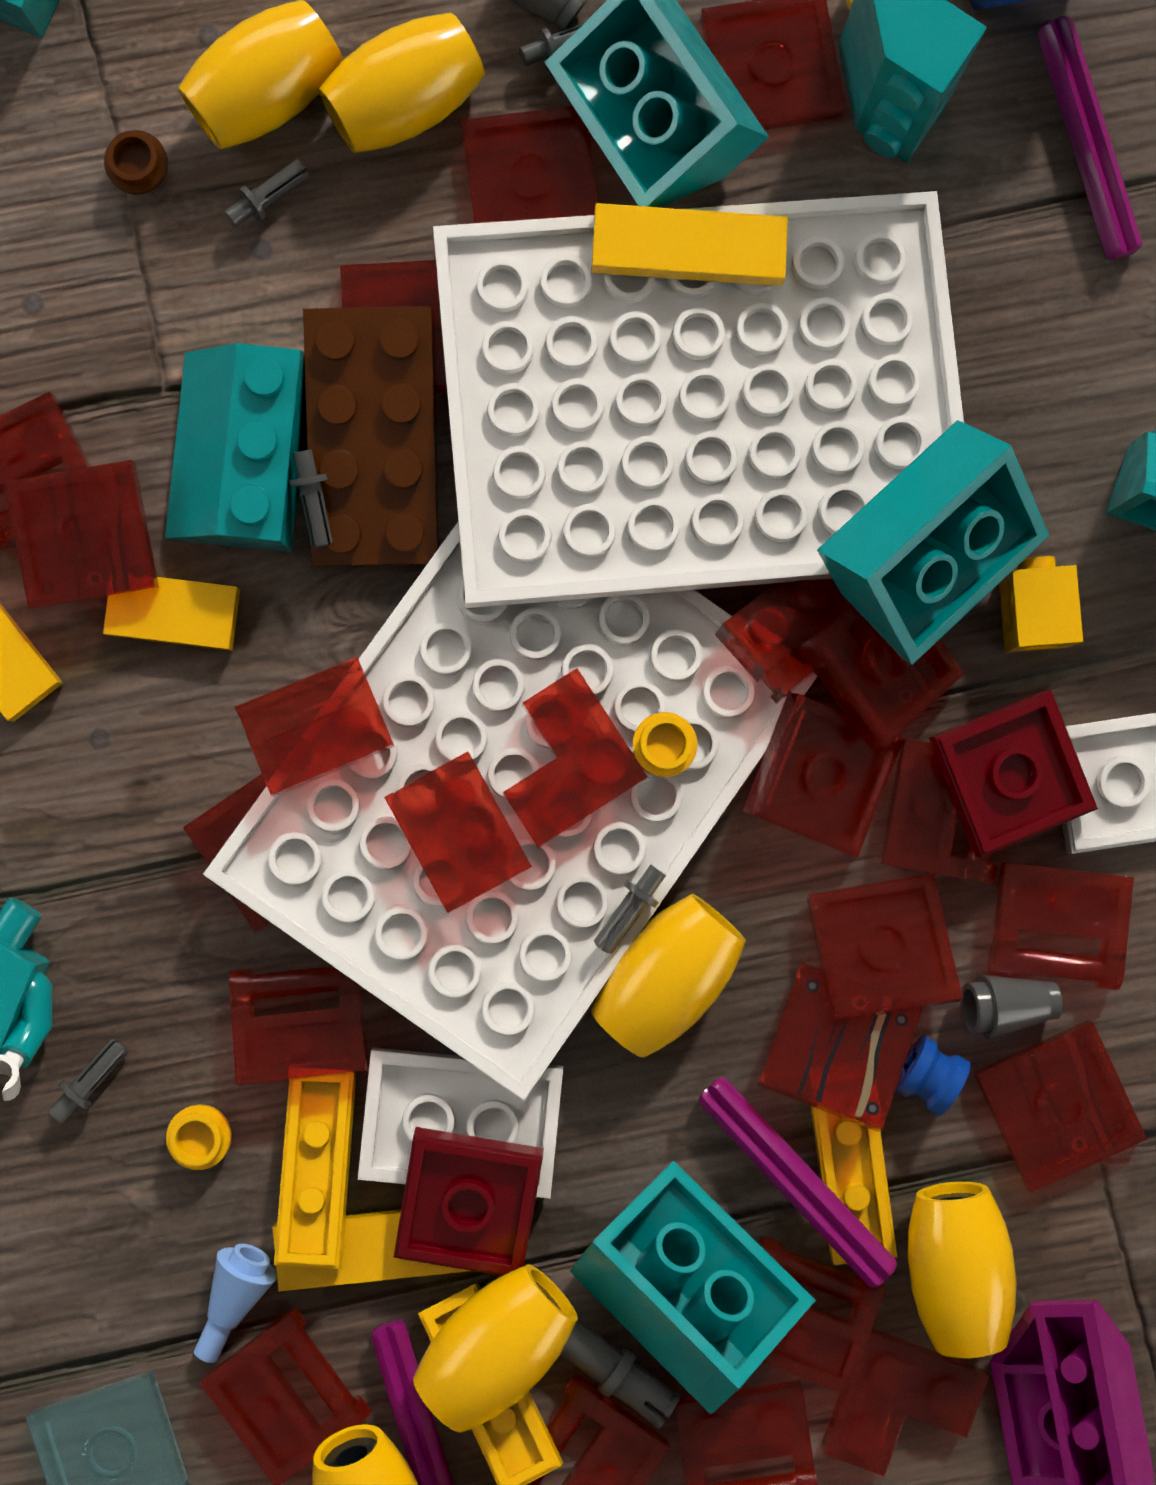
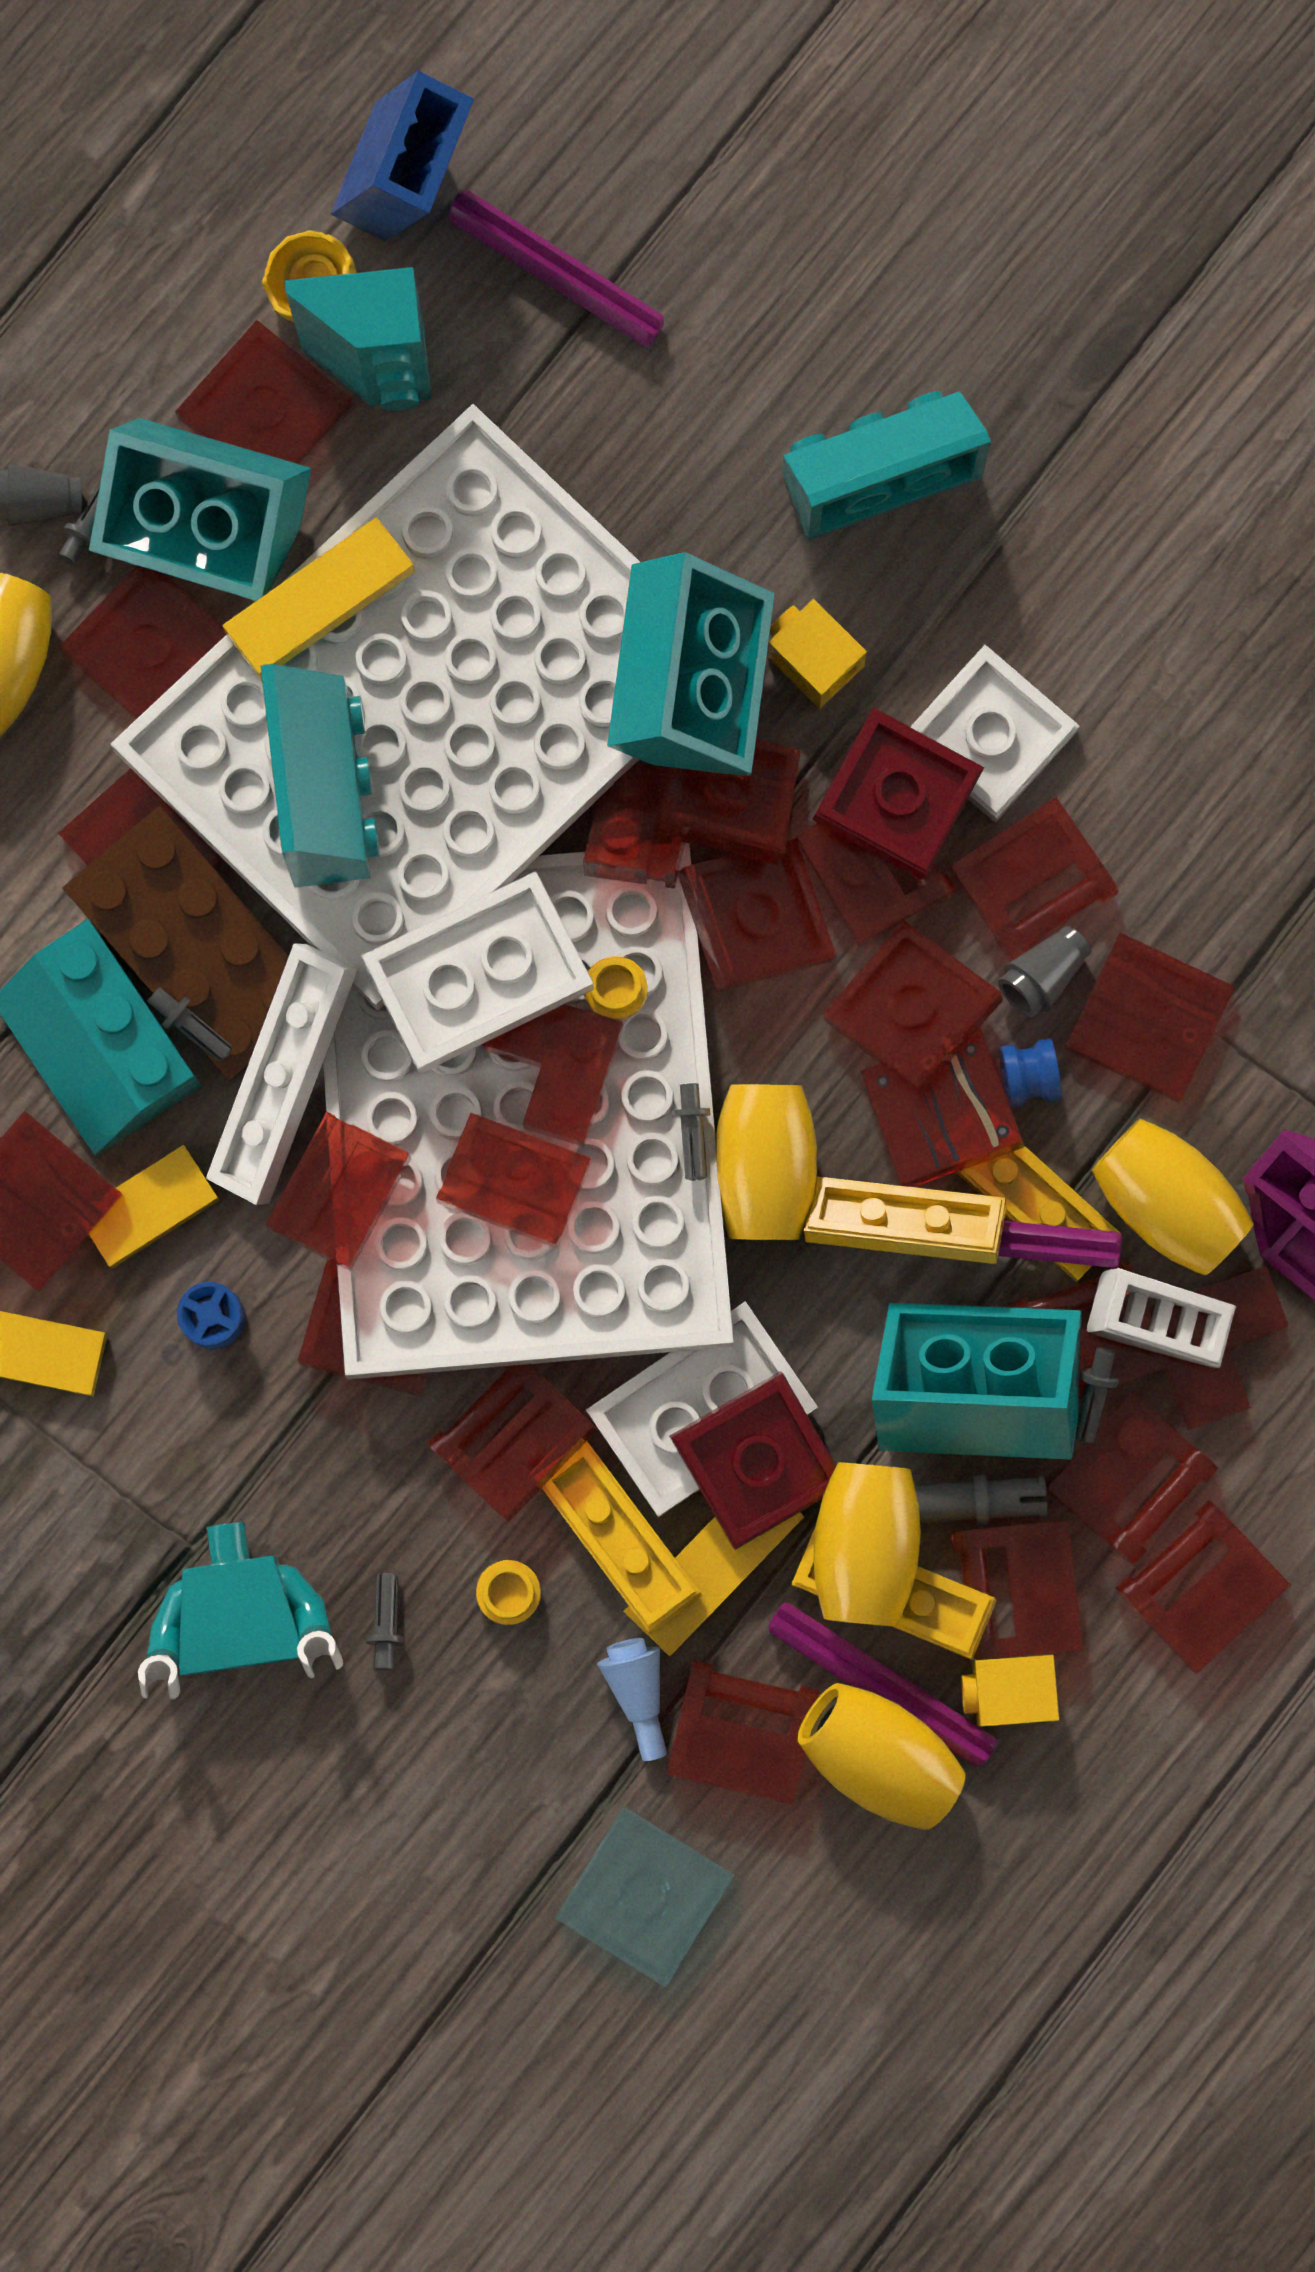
camera: 35 degrees left, 5 degrees down
(136, 740) = (201, 1309): none -> blue wheel
(352, 594) = (281, 1073): none -> white plate
(564, 645) = (477, 972): none -> white plate
(567, 382) = (318, 776): none -> teal slope
(739, 1114) = (906, 1220): none -> yellow tile
(784, 1364) = (1097, 1381): none -> dark grey piece
(849, 1320) = (1109, 1302): none -> white slope

